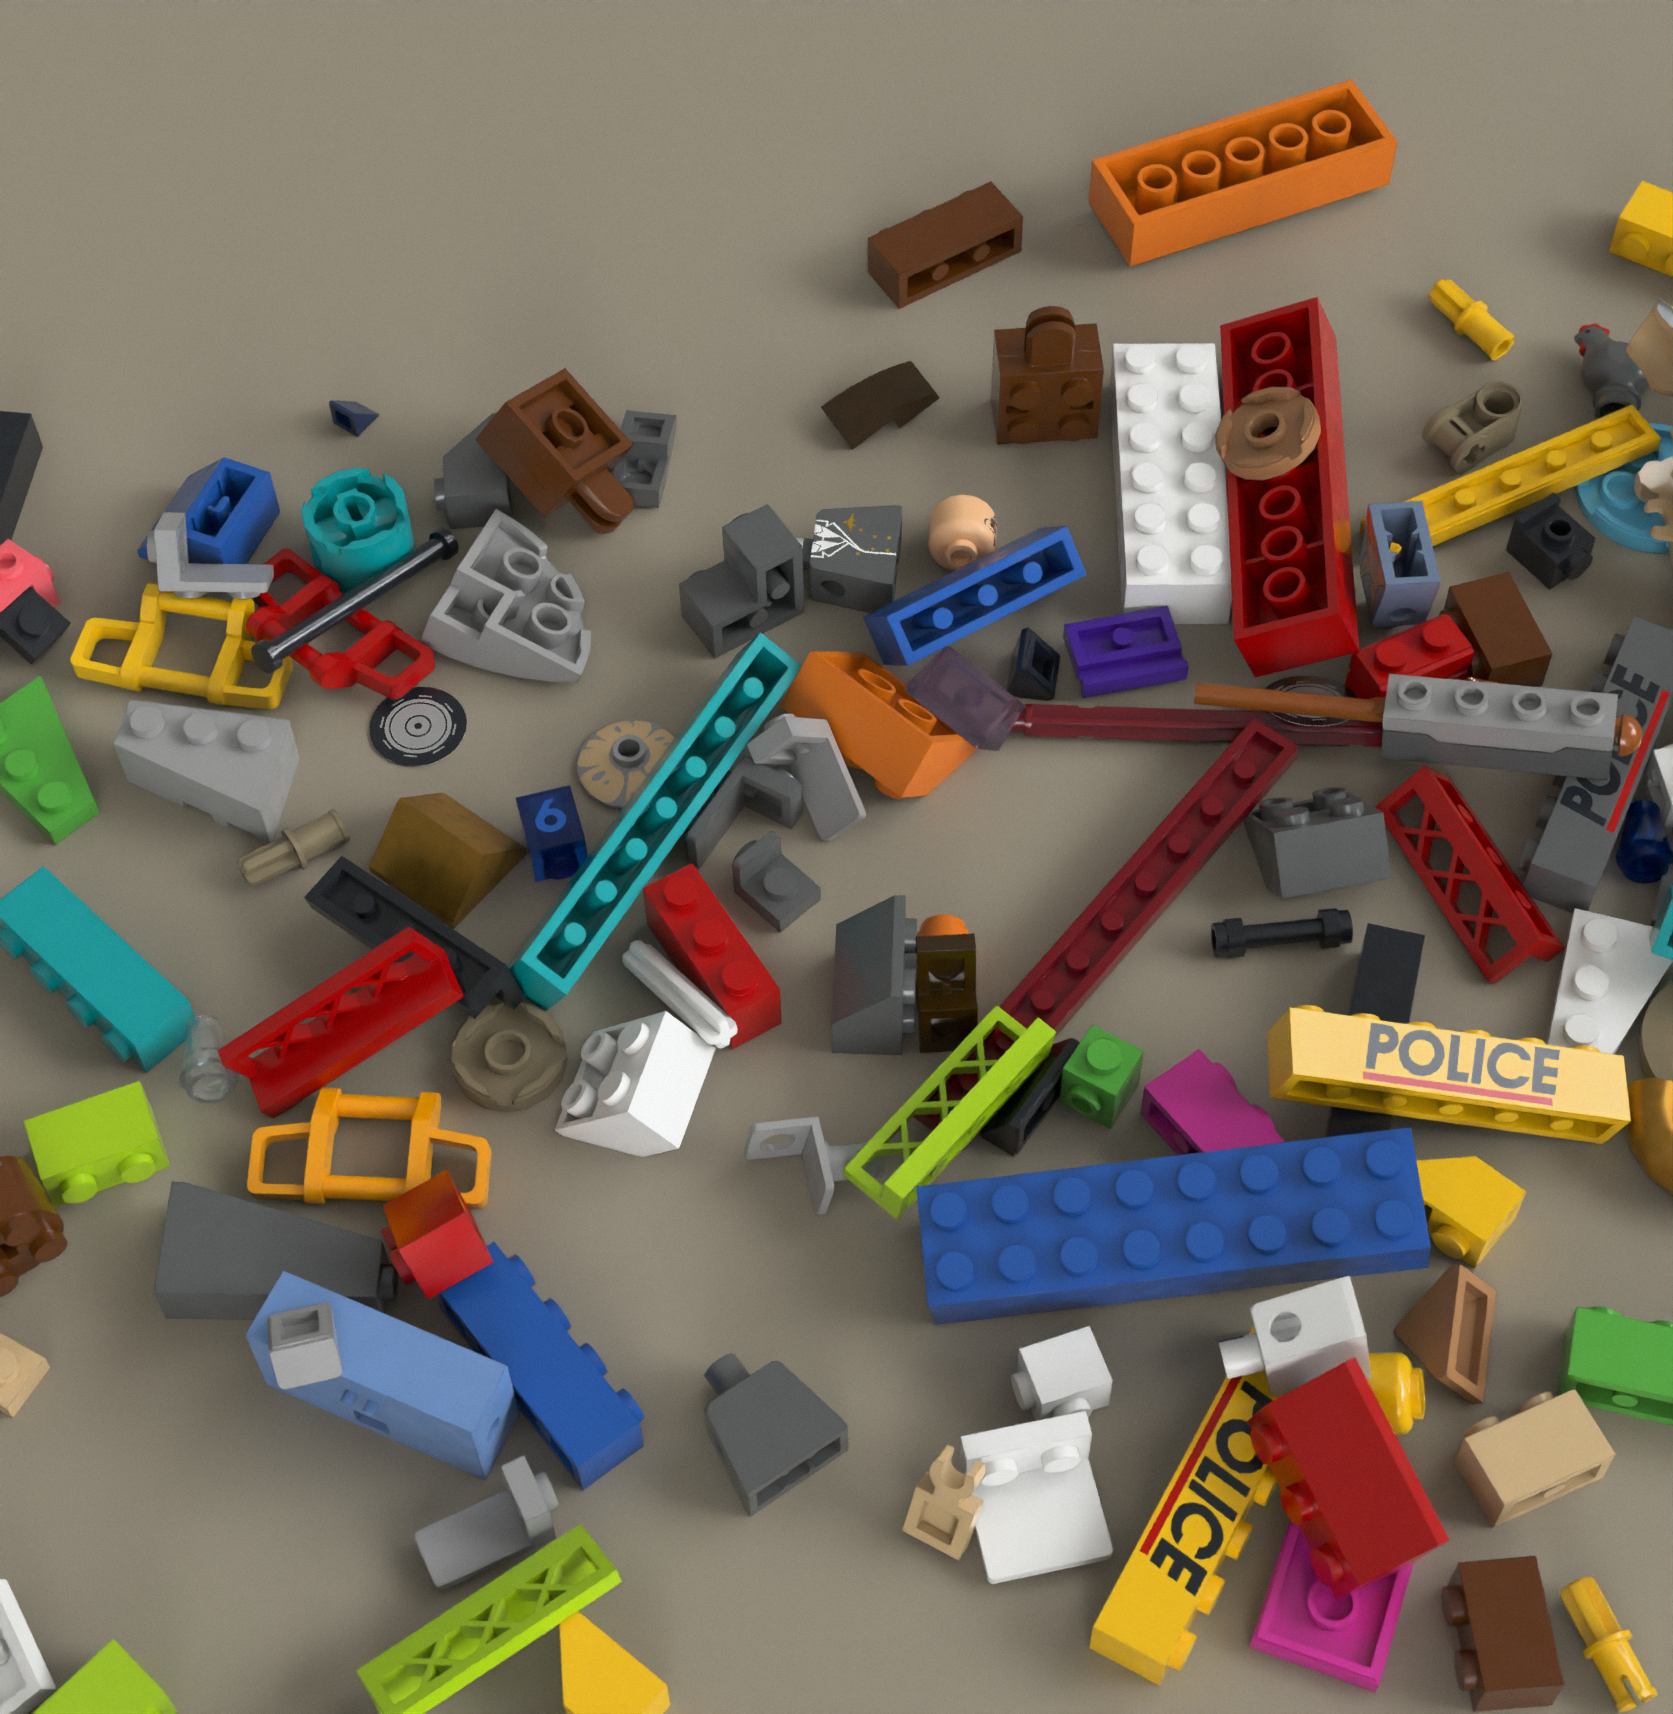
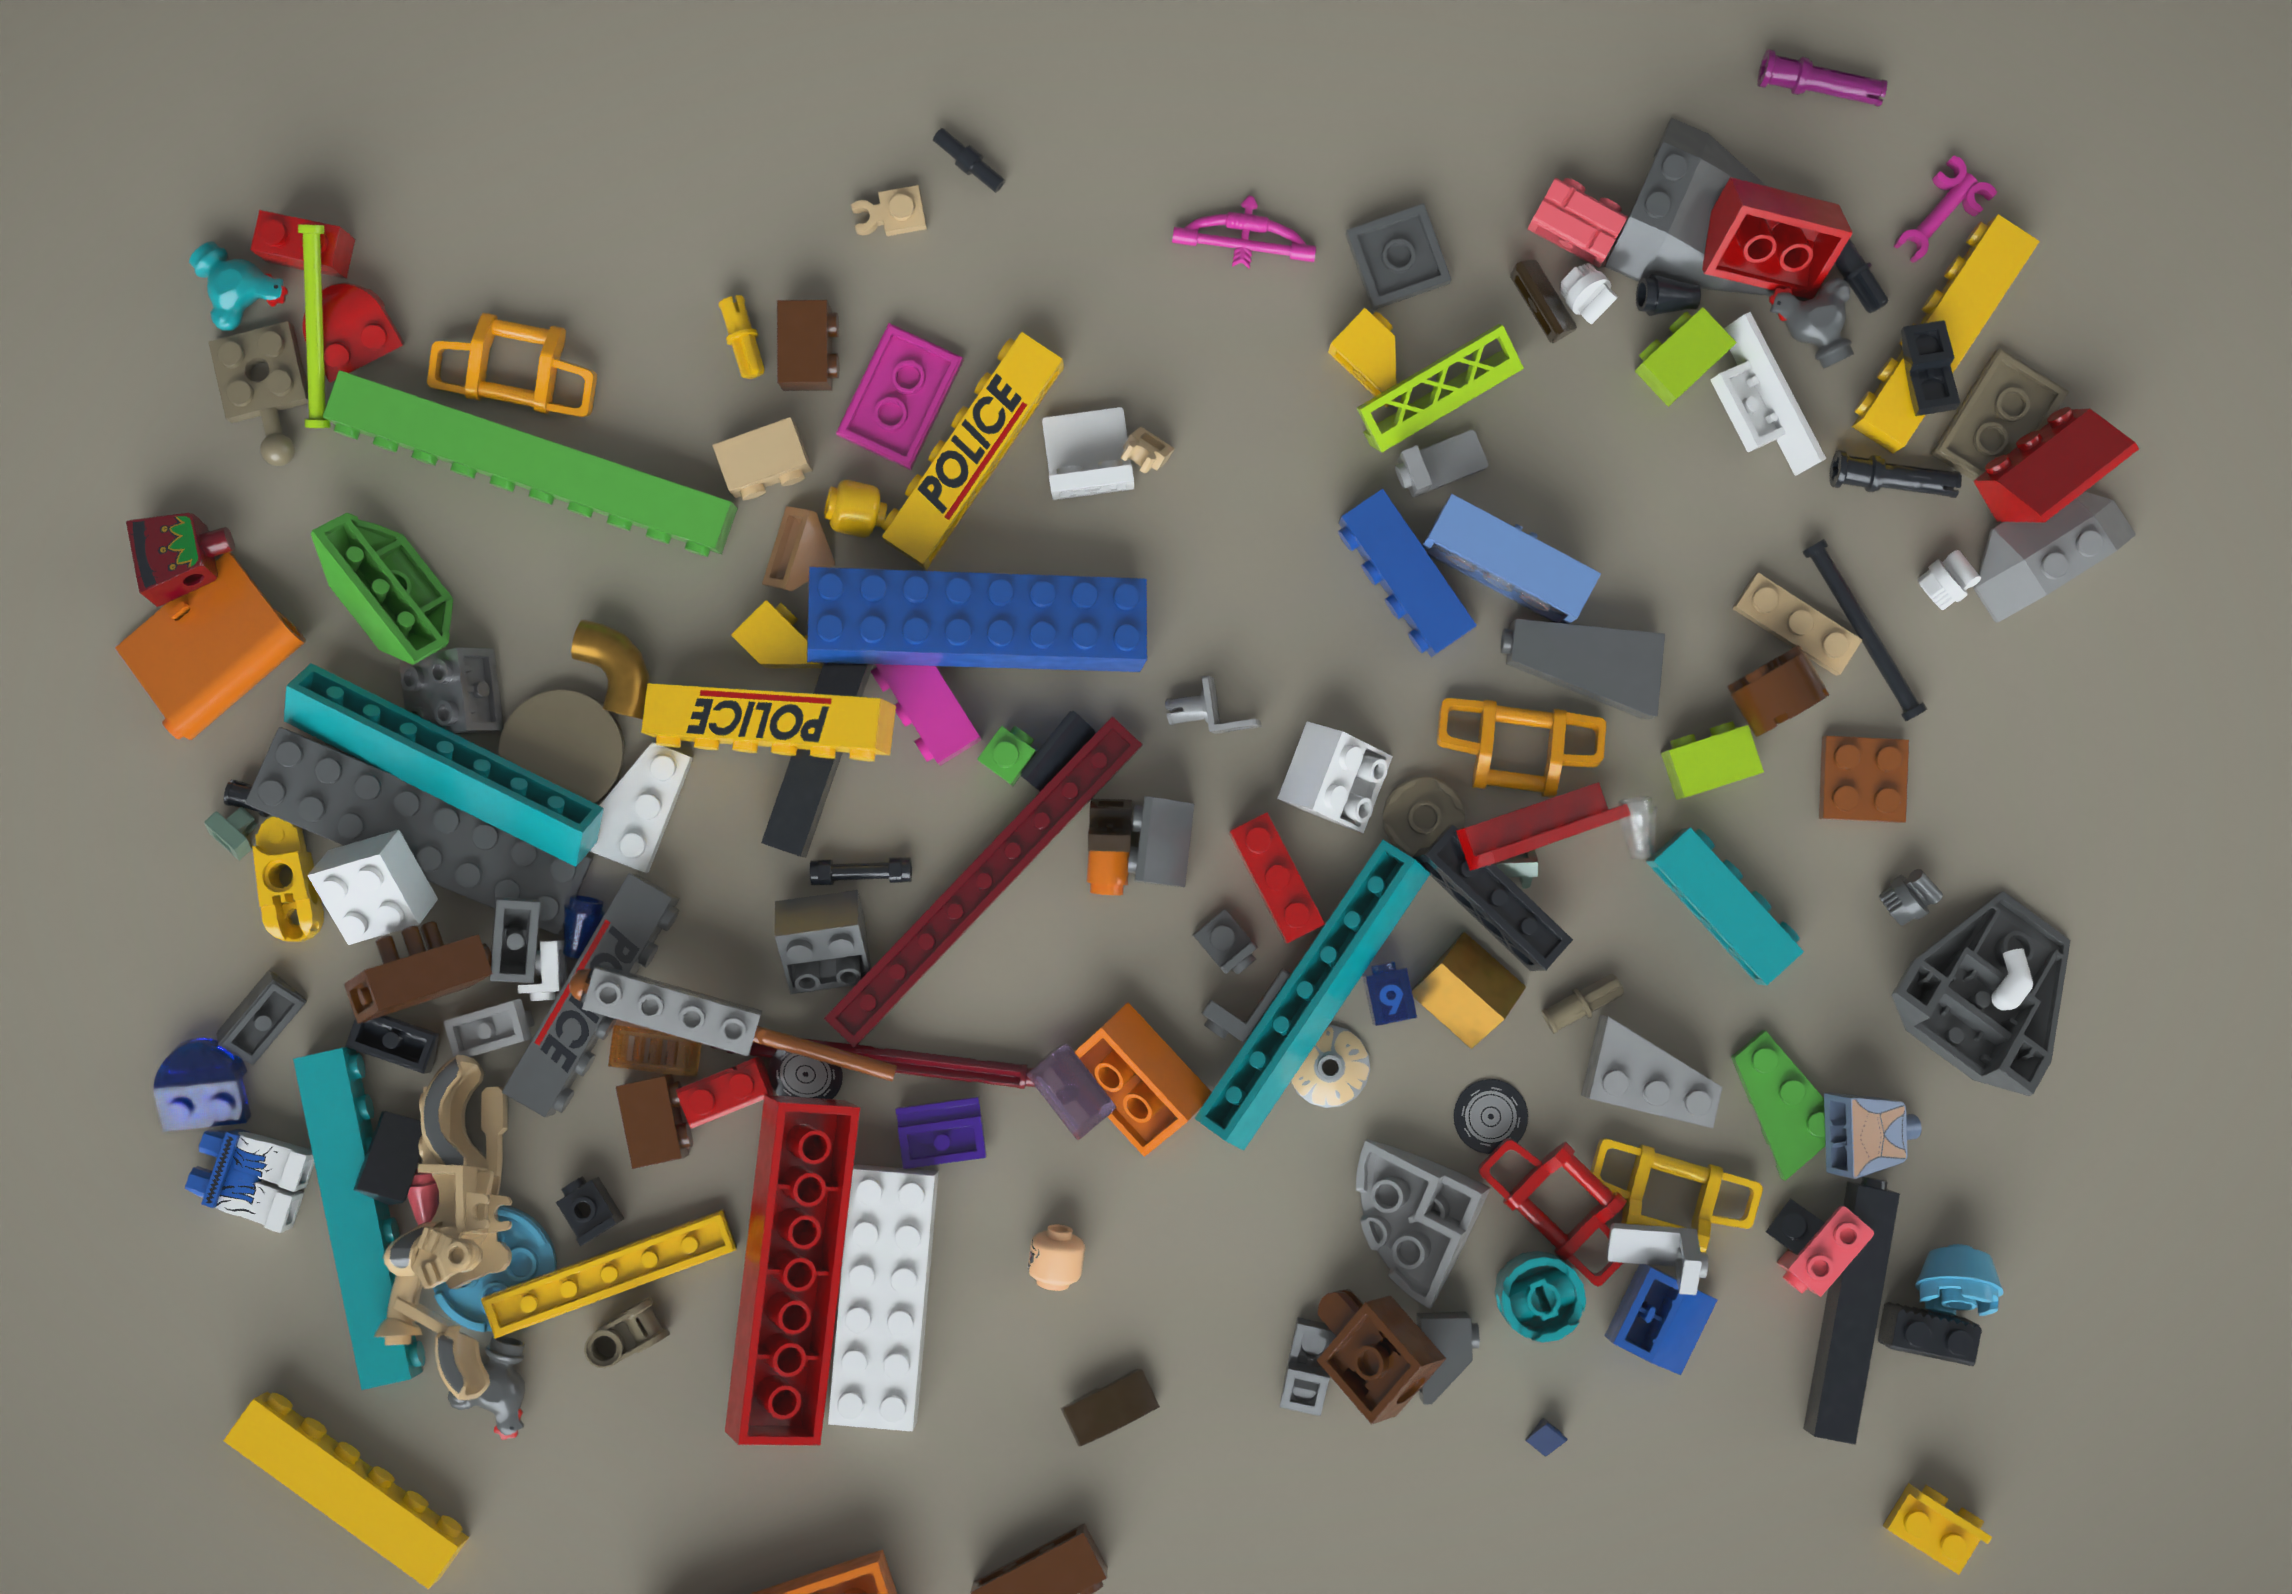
camera: 175 degrees left, 30 degrees up
(269, 654) = (1540, 1222): black bar -> none
(304, 1346) = (1562, 560): light grey slope -> none
(434, 1236) = (1475, 658): red brick -> none
(679, 994) = (1301, 845): white axle -> none
(750, 589) = (1234, 1210): dark grey brick -> none
(769, 1429) = (1257, 516): dark grey torso -> none
(818, 764) = (1186, 1029): light grey bracket -> none
(854, 556) = (1147, 1241): dark grey torso -> none
(974, 596) = (1052, 1186): blue brick -> none
(996, 1084) = (1105, 719): lime fence -> none
(1033, 668) = (1013, 1125): black slope -> none
(1046, 379) = (972, 1395): reddish brown brick -> none
(1062, 1376) = (1061, 534): white brick -> none
(1277, 453) = (784, 1287): medium nougat tile -> none
(1300, 1337) = (887, 522): white torso -> none
(1346, 1480) = (893, 426): red slope -> none
(1402, 585) = (720, 1169): sand blue torso -> none
(1471, 318) = (605, 1461): yellow axle -> none
(1487, 867) = (703, 911): red fence -> none

